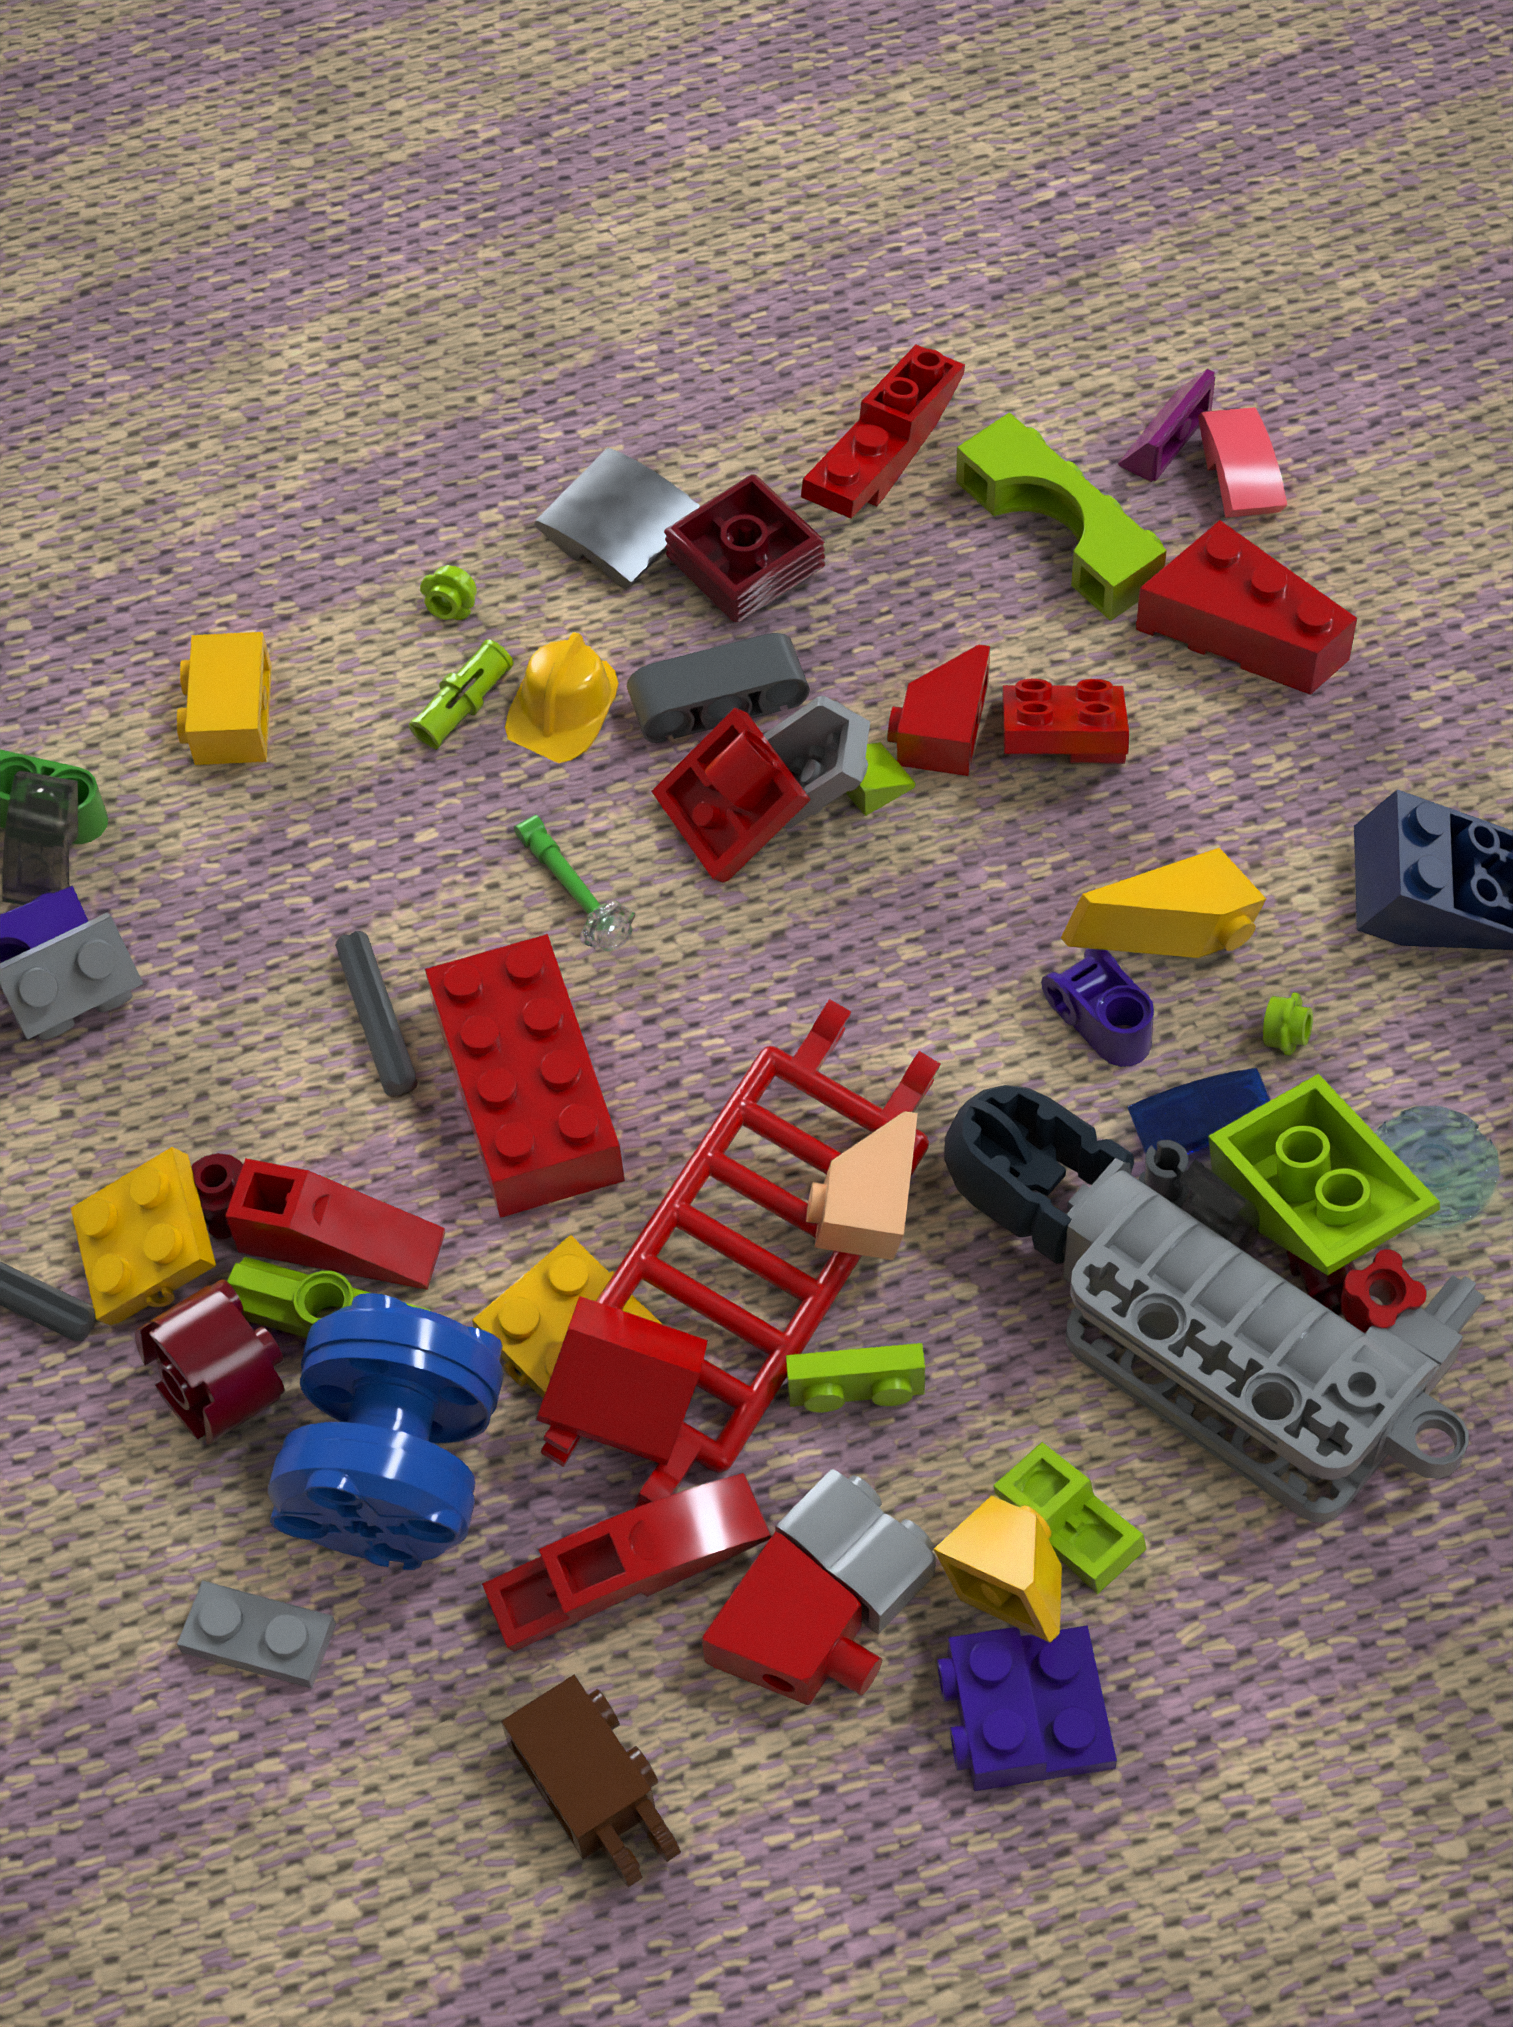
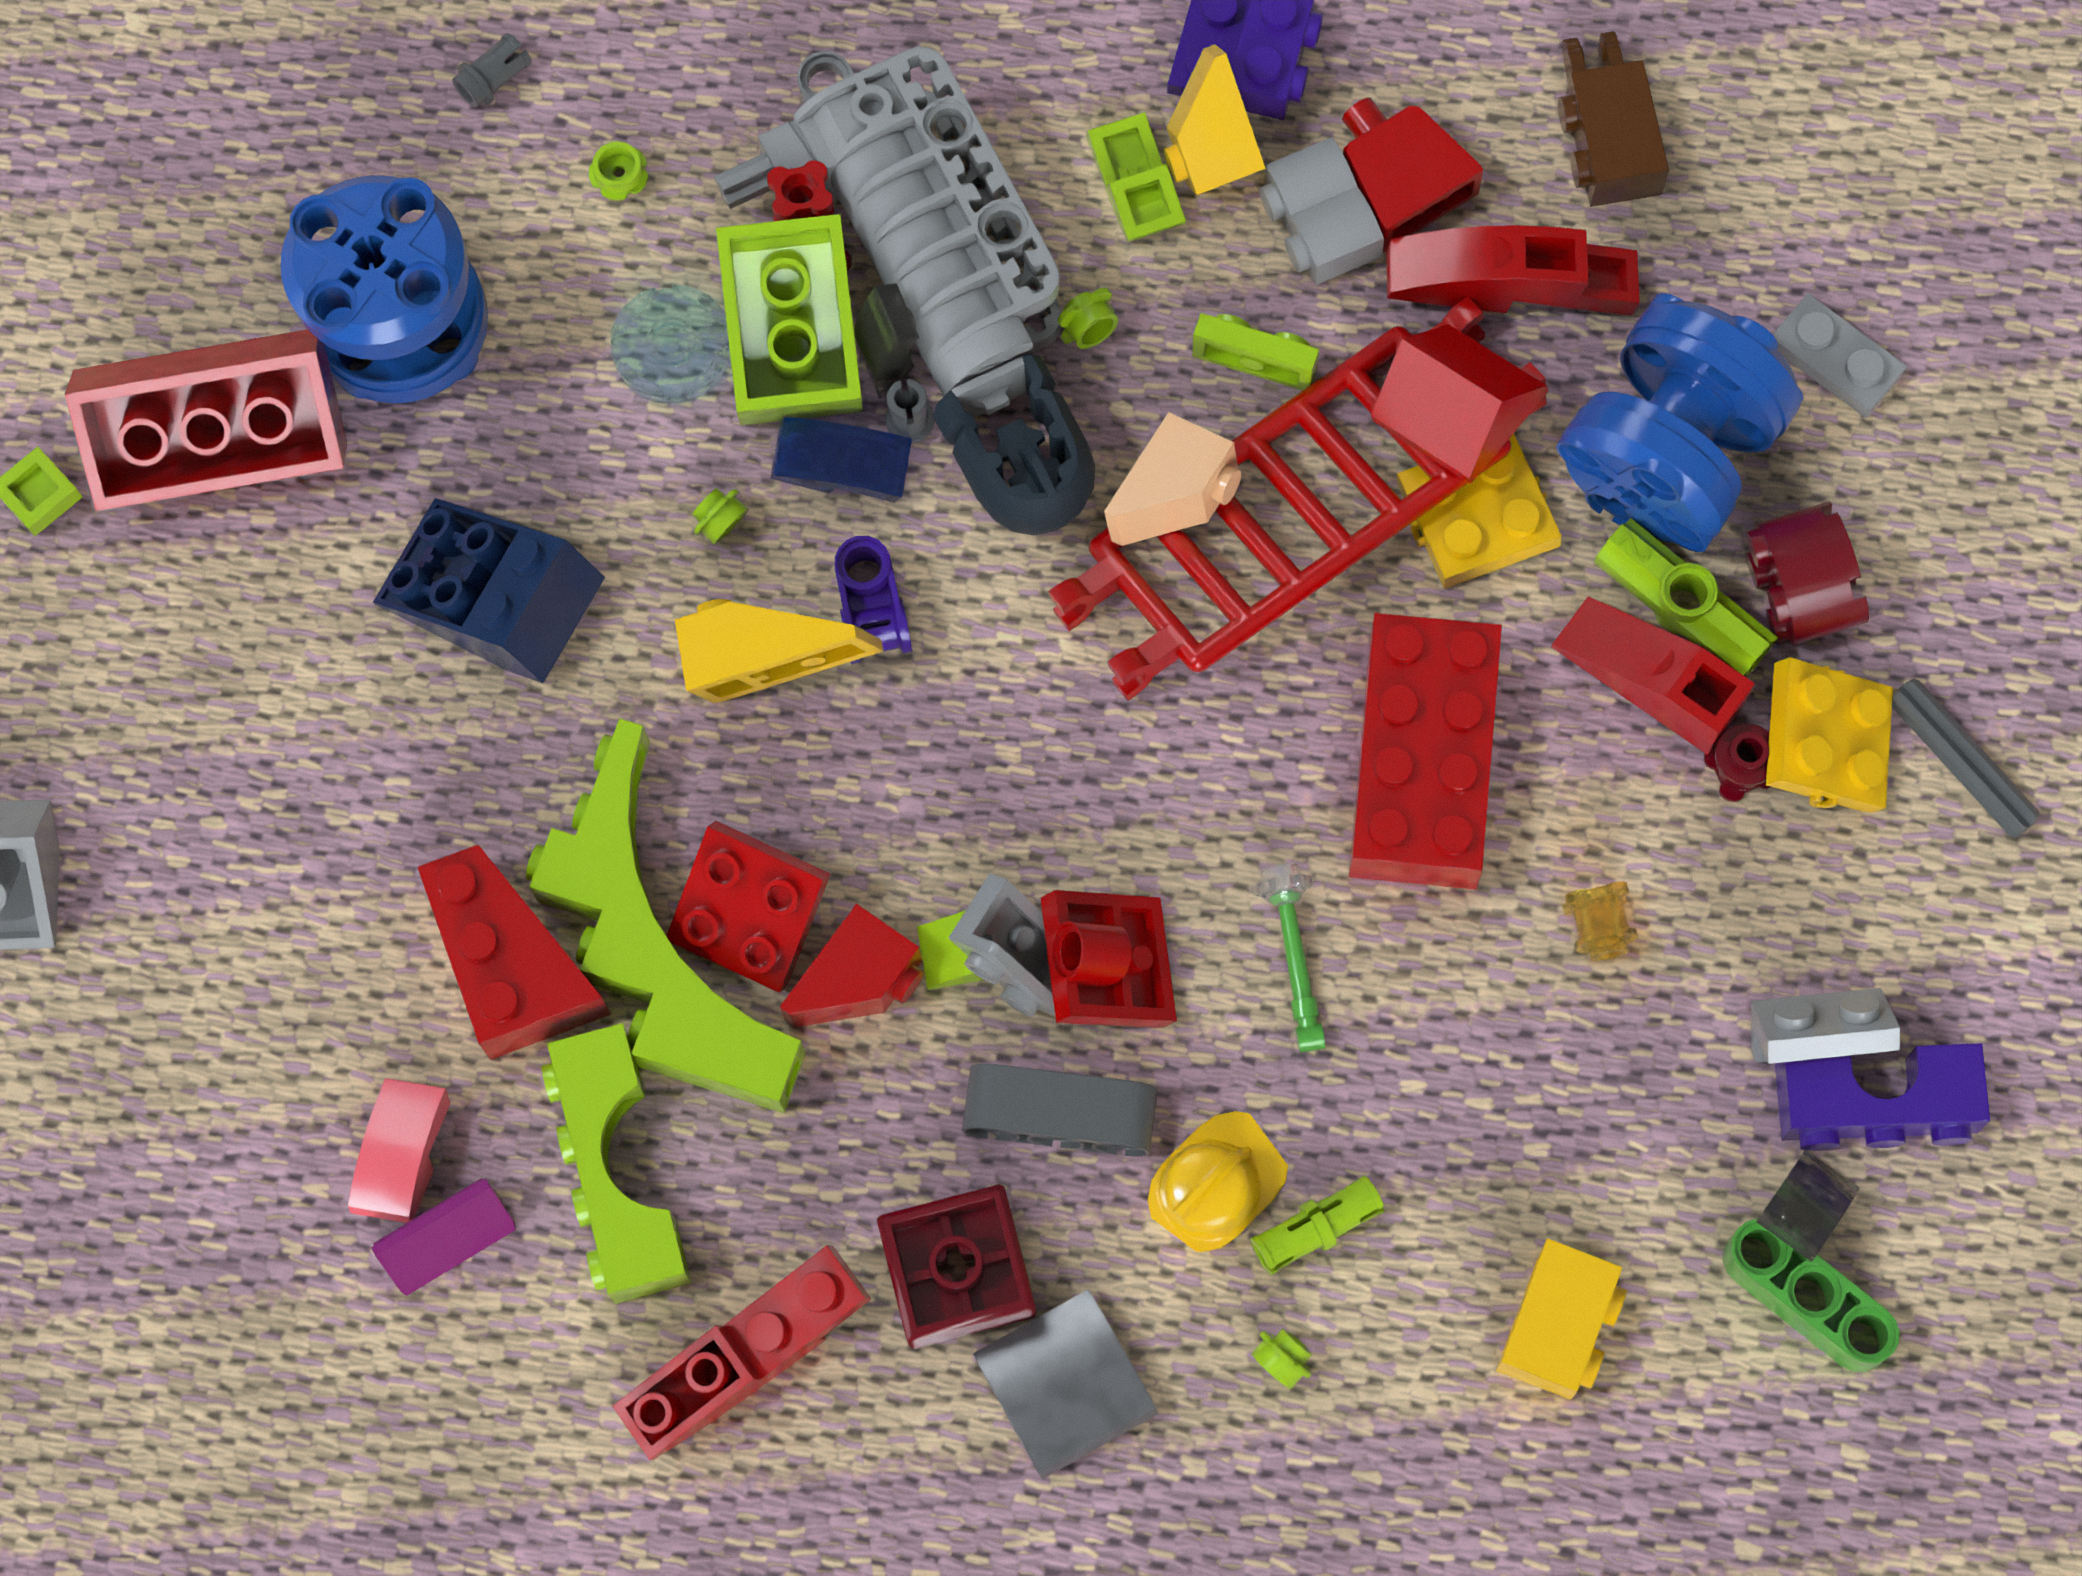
camera: 155 degrees left, 15 degrees up
(306, 1005) = (1601, 921): none -> clear yellow brick
(376, 1014) = (1534, 895): dark grey axle -> none
(1039, 1341) = (1088, 319): none -> lime plate
(1067, 627) = (598, 875): none -> lime arch

